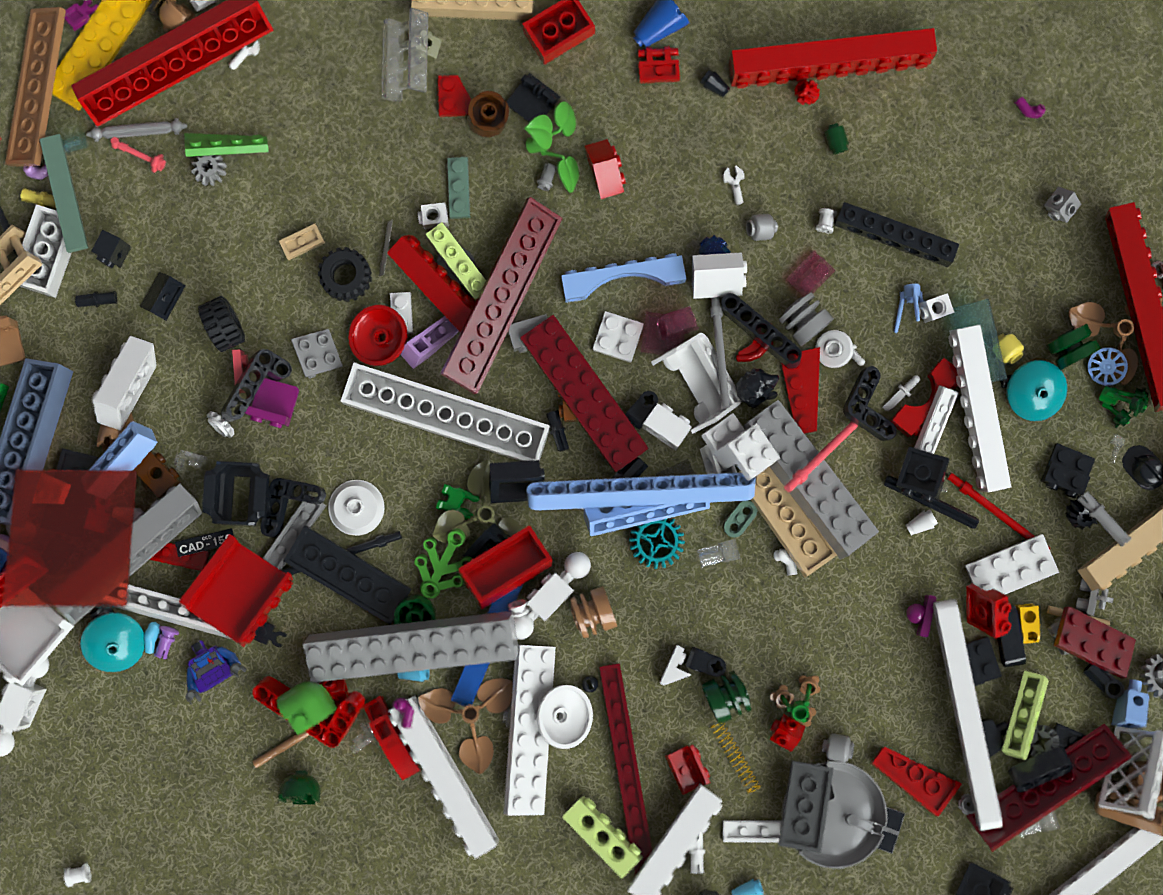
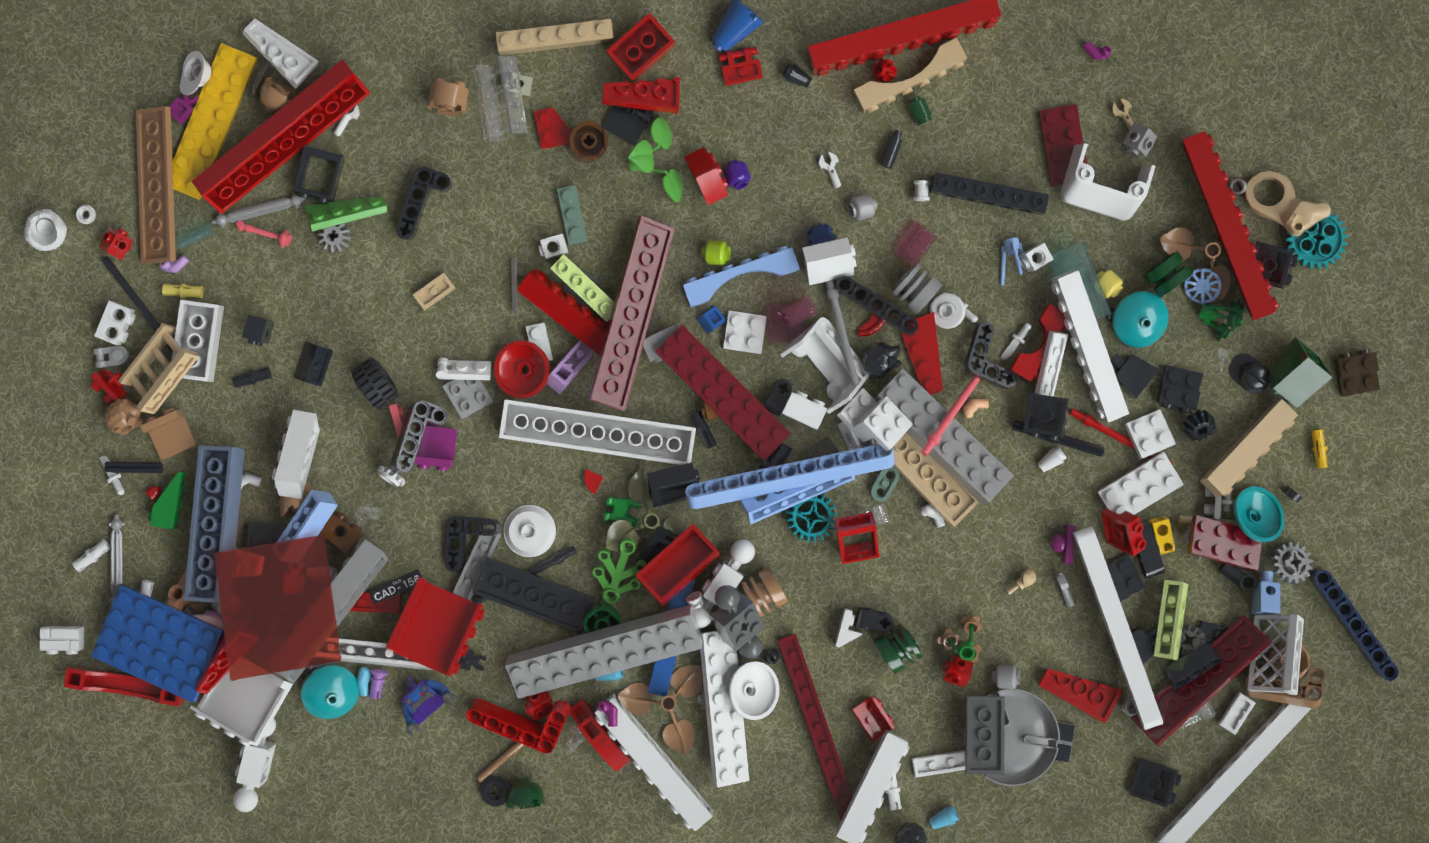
camera: 10 degrees left, 5 degrees up
(64, 193) = (204, 285): sand green tile -> none
(73, 403) = (251, 479): none -> white arm
(198, 80) = (309, 152): none -> black window
(219, 492) = (402, 539): black piece -> none
(262, 773) = (490, 798): none -> black gear
(303, 150) = (411, 202): none -> black beam
(305, 705) = (518, 721): bright green brick -> none
(317, 327) = (463, 369): none -> white plate
(333, 262) = (467, 306): black tyre -> none
(352, 46) = (448, 97): none -> medium nougat brick
(431, 465) = (592, 480): none -> red tile
(545, 181) = (653, 192): light grey pin -> none
(557, 77) = (653, 95): none -> red wing
(559, 638) = (738, 621): none -> dark grey brick
(585, 318) = (711, 319): none -> blue slope
(591, 834) = (808, 801): yellowish green brick -> none
(601, 249) = (716, 252): none -> lime head
(636, 173) = (737, 174): none -> dark purple head
(701, 556) = (855, 525): none -> red window
(748, 790) = (920, 703): yellow piece -> none
(792, 113) = (874, 93): none -> tan arch
(801, 174) = (891, 150): none -> black cylinder
(846, 452) = (972, 405): none -> light nougat arm
(876, 646) = (1026, 579): none -> tan piece
(914, 658) = (1063, 585): none -> light grey bar
(981, 199) = (1060, 133): none -> dark red plate
(1012, 257) = (1083, 193): none -> white windscreen
(1021, 446) = (1133, 373): none -> black torso
(1029, 513) = (1149, 434): none -> white plate
(1049, 177) = (1124, 114): none -> tan bar
(1081, 830) = (1236, 713): none -> white plate
(1097, 511) = (1215, 429): light grey pin -> none
(1135, 617) = (1259, 514): none -> teal dish

